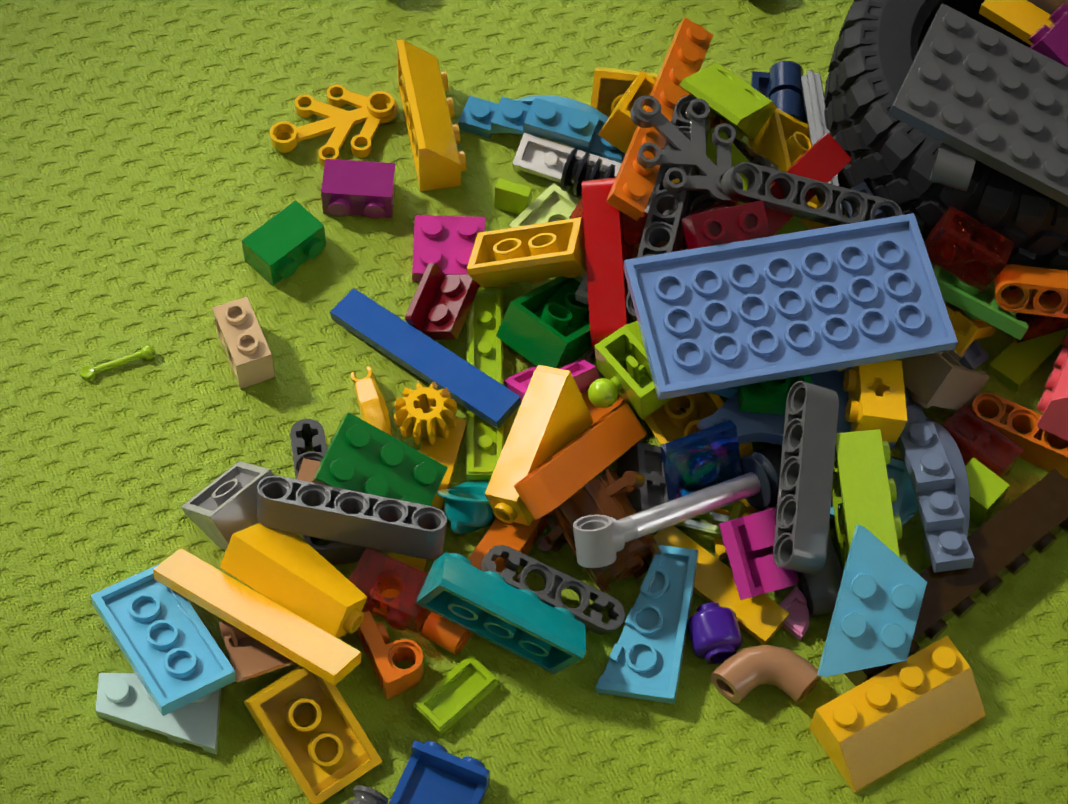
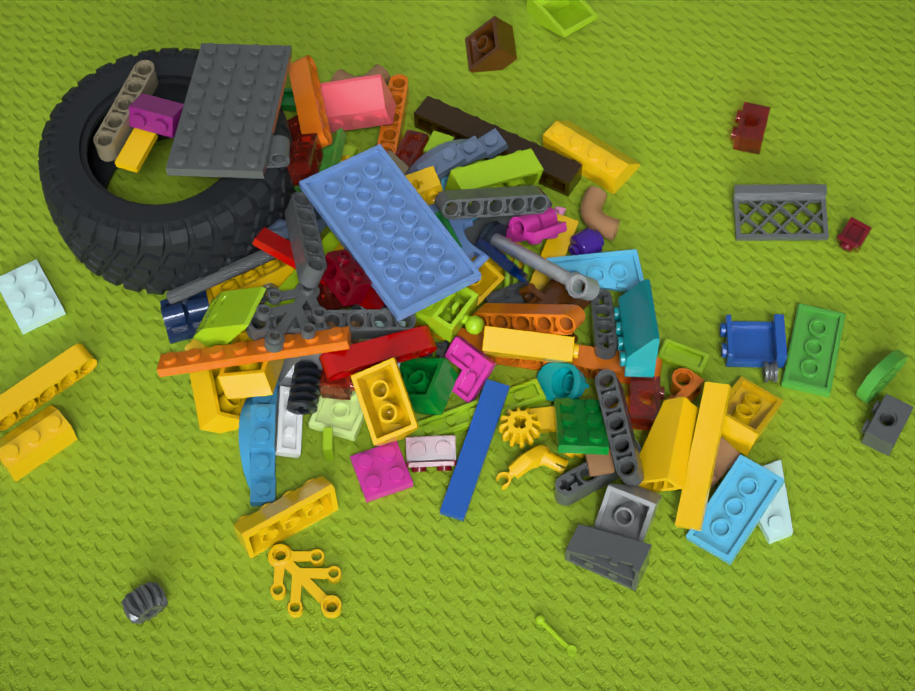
camera: 105 degrees left, 0 degrees up
(180, 452) = (609, 555): none -> dark grey wedge
(243, 342) = (512, 556): tan brick -> none
(284, 243) = (423, 565): green brick -> none
(358, 188) = (359, 538): magenta brick -> none
(873, 609) = (555, 160): medium azure wing -> none

